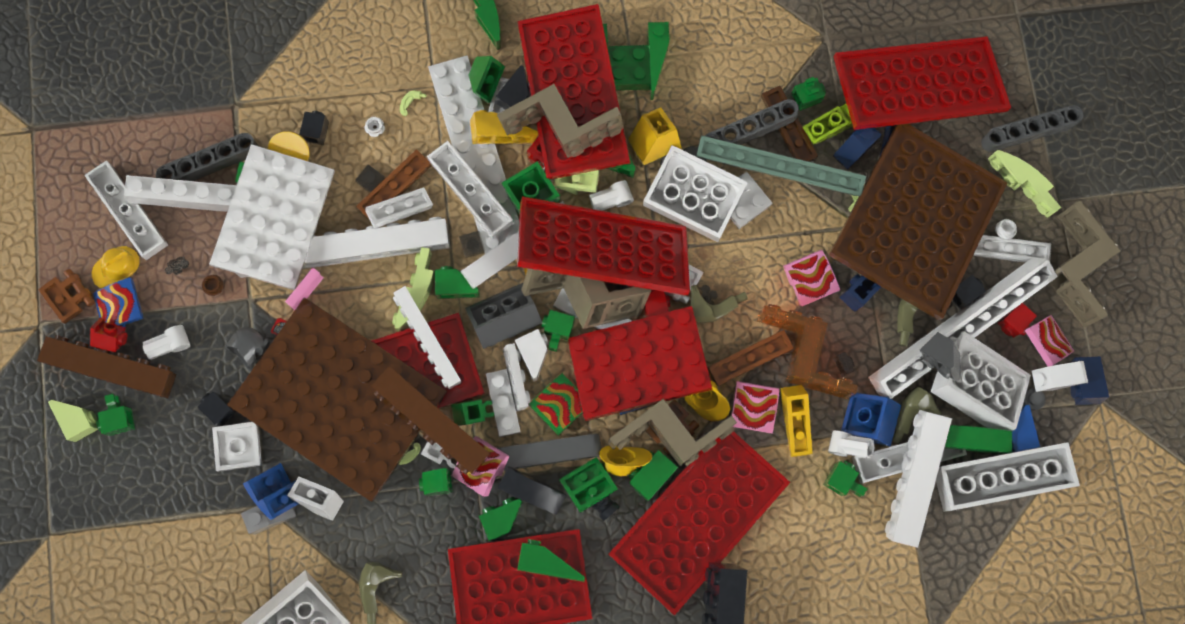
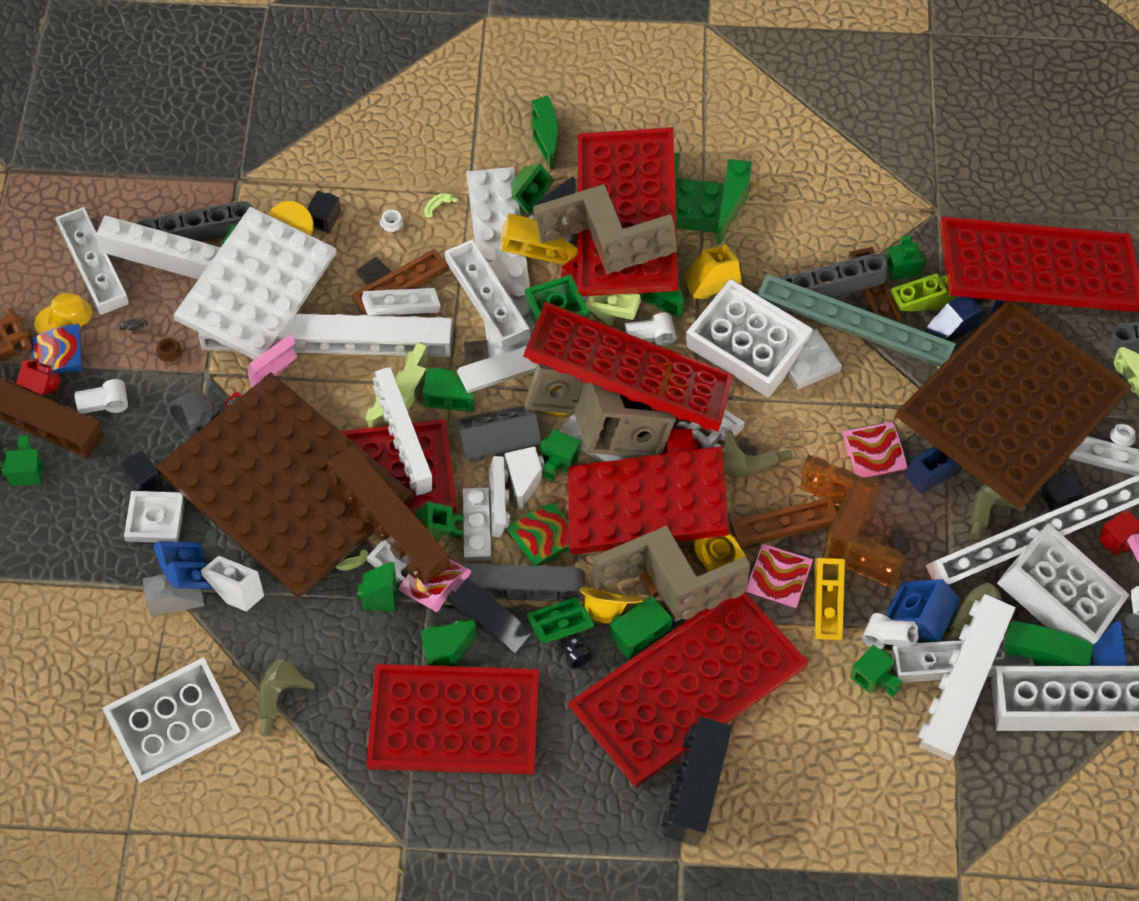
camera: 15 degrees right, 20 degrees down
(542, 561) = (487, 691): green slope -> none
(943, 355) = (1014, 538): dark grey slope -> none

